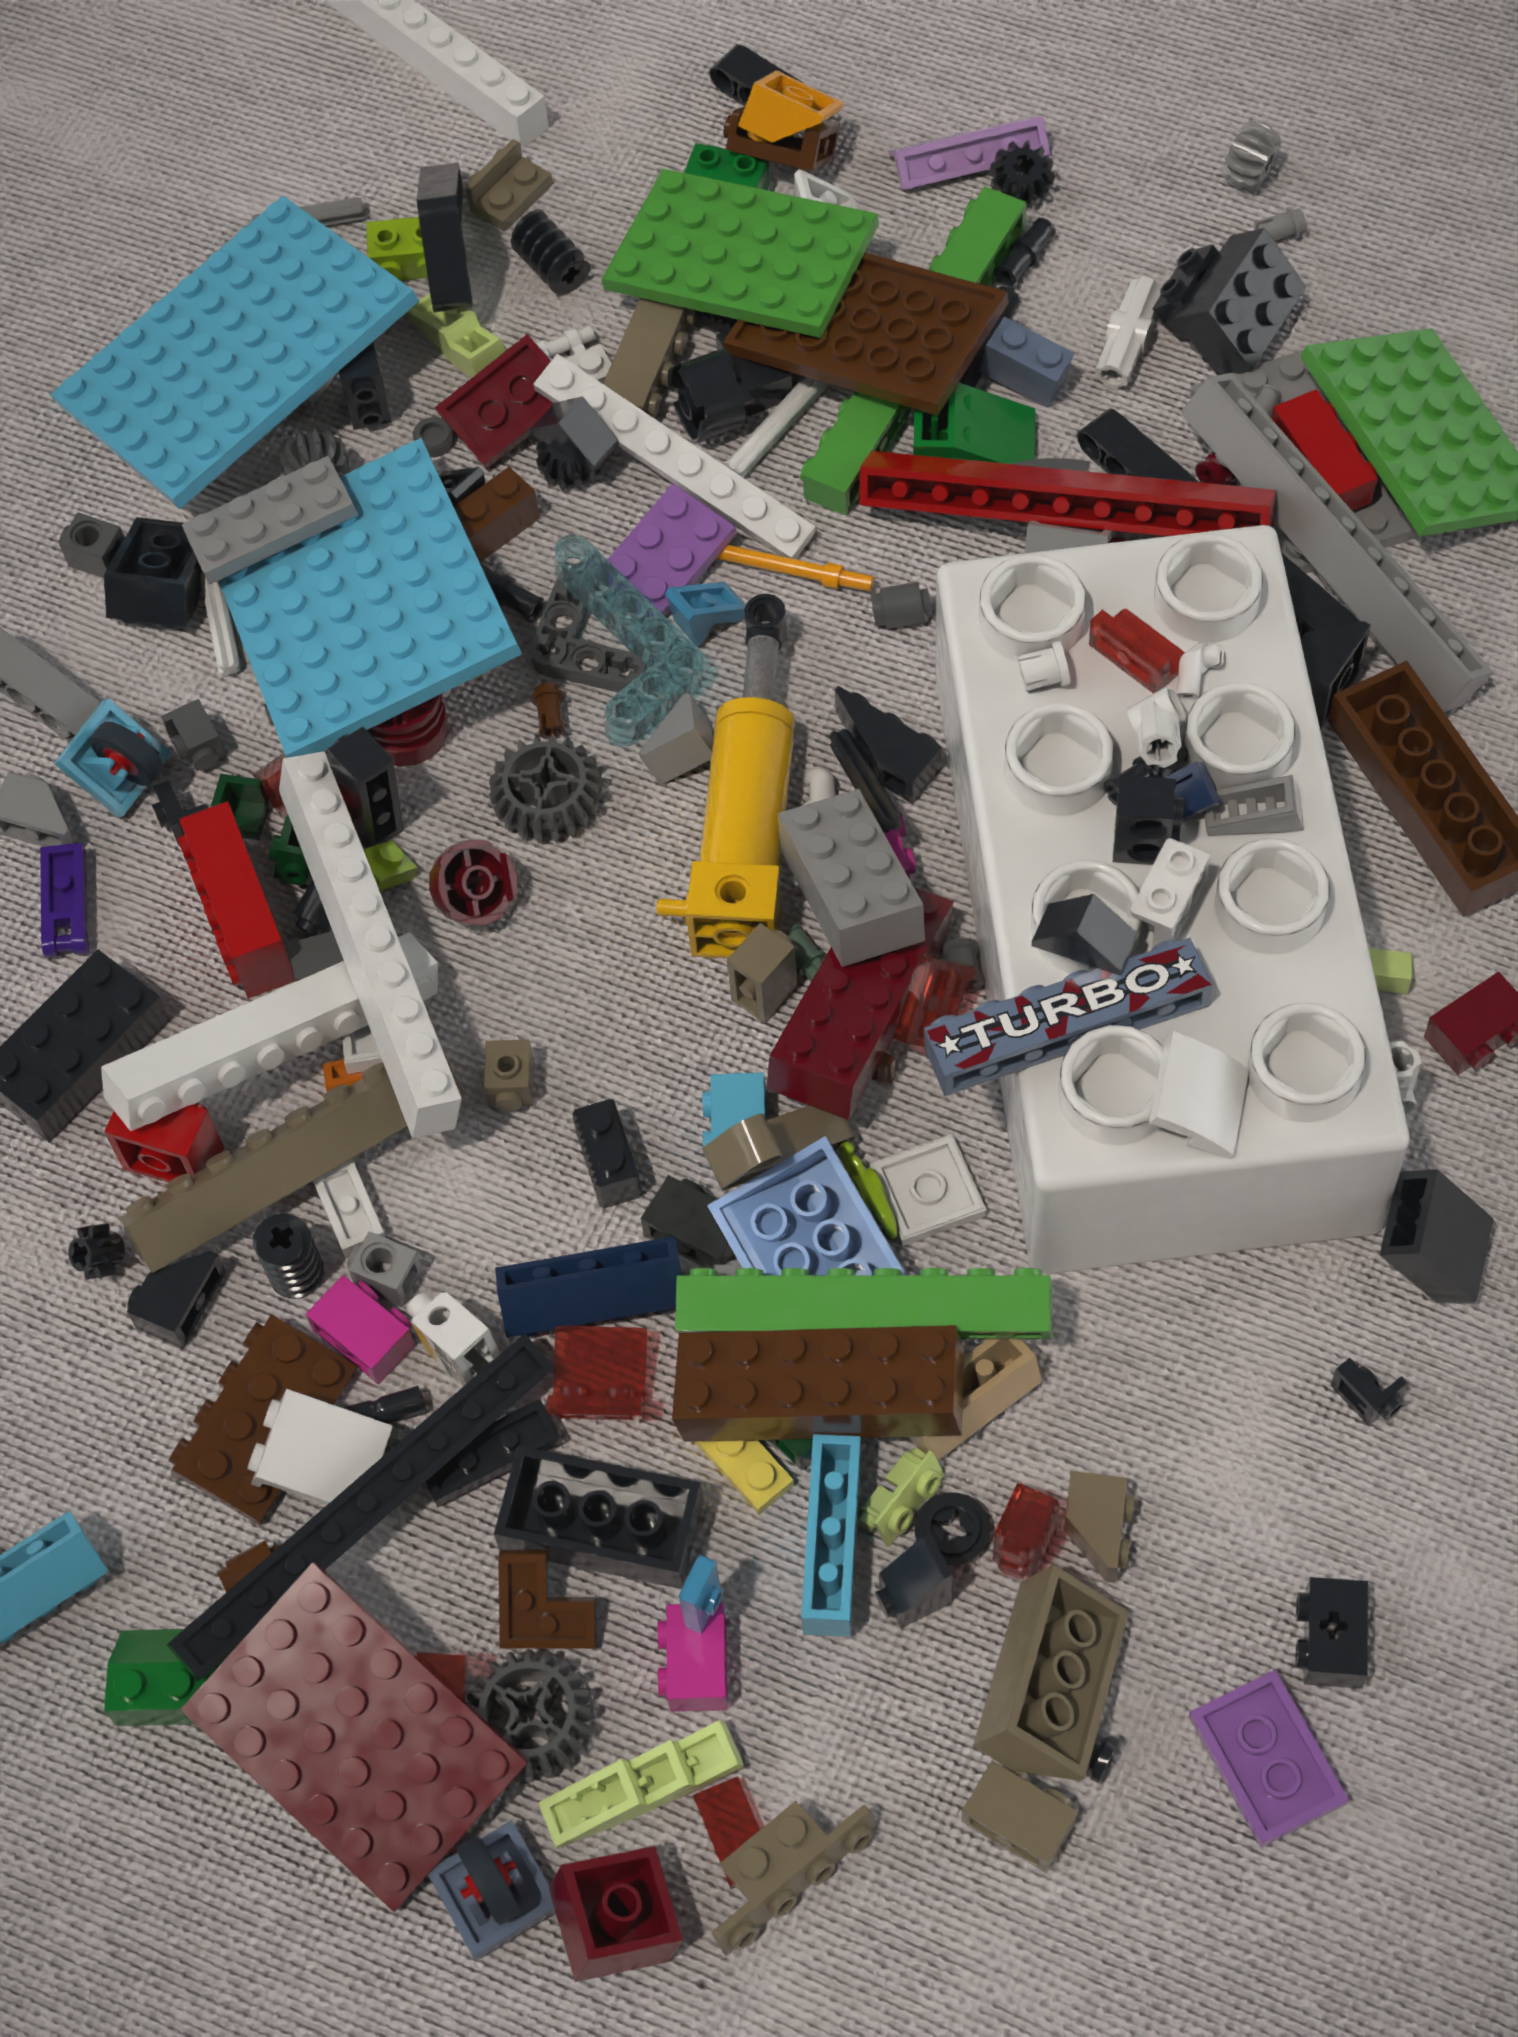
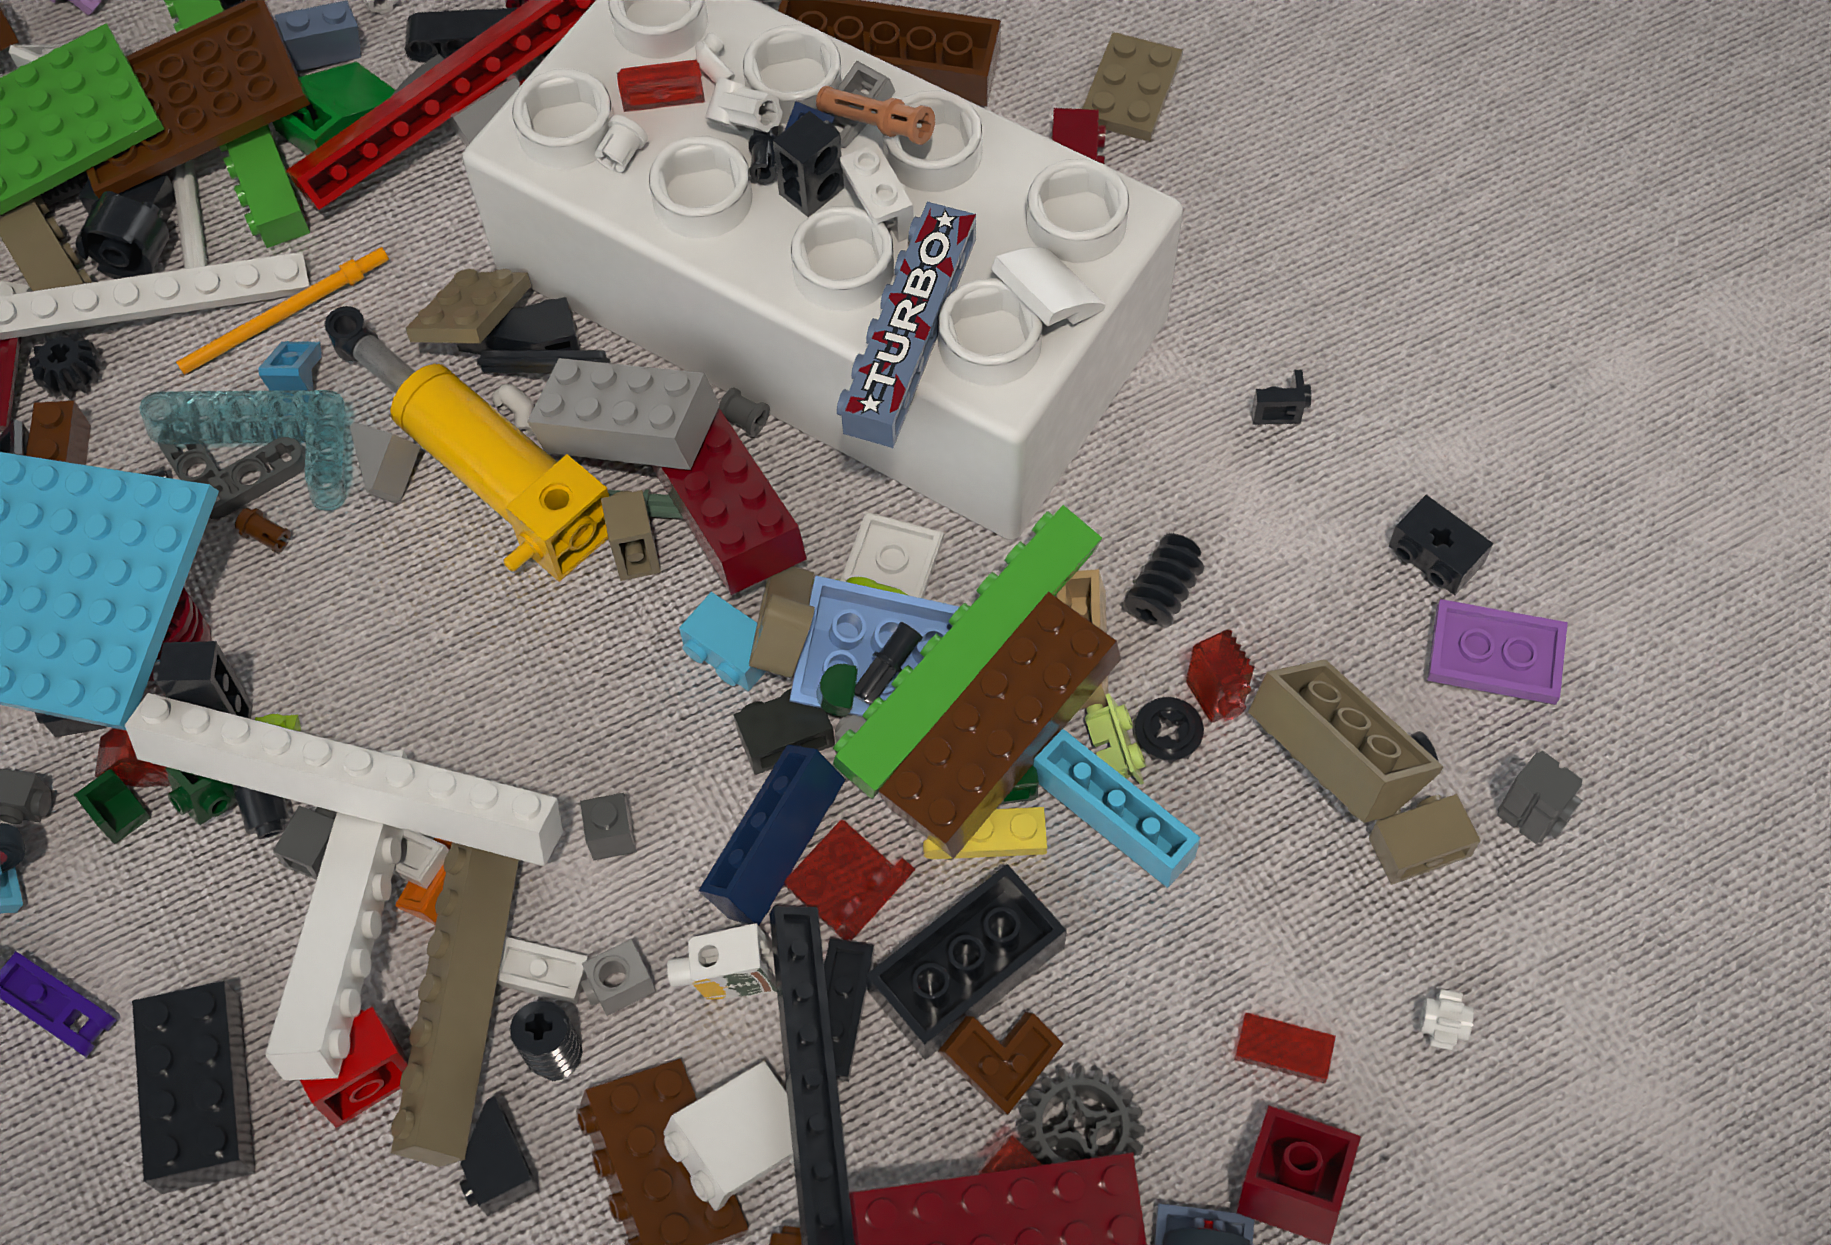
camera: 55 degrees left, 0 degrees up
(96, 1251) = (397, 1196): black gear -> none
(169, 810) = (64, 862): black bracket -> none
(234, 901) = (196, 862): red brick -> none
(362, 1328) = (652, 1031): dark pink brick -> none
(392, 1406) = (737, 1055): black piece -> none
(473, 882) = (357, 679): dark red cylinder -> none
(502, 1161) = (608, 826): none -> dark grey brick
(509, 1074) = (539, 768): dark tan brick -> none
(564, 799) = (320, 599): dark grey gear -> none
(576, 431) = (55, 337): black slope -> none
(607, 1153) = (672, 747): black brick -> none
(640, 1785) = (1198, 1089): yellowish green slope -> none
(671, 546) = (217, 347): medium lavender plate -> none
(695, 1662) = (1130, 974): dark pink brick -> none
(700, 1594) = (1106, 921): dark azure plate -> none
(739, 1233) = (837, 689): none -> dark green brick
(782, 1864) = (1337, 1027): dark tan bracket -> none
(798, 1253) = (887, 663): none -> black axle
(858, 1948) = (1446, 1019): none -> white gear
(866, 685) = (469, 307): none -> dark tan plate
(900, 605) = (422, 247): dark grey brick -> none
(915, 1583) = (1199, 775): black slope -> none
(934, 992) = (758, 430): clear red plate -> none
(1086, 933) = (865, 256): black slope -> none
(1089, 1422) = (1165, 580): none -> black piece
(1095, 1520) = (1255, 630): dark tan slope -> none
(1133, 1888) = (1541, 798): none -> dark grey brick
(1244, 843) = (904, 121): none -> nougat pin
(1436, 1236) = (1218, 276): black brick -> none

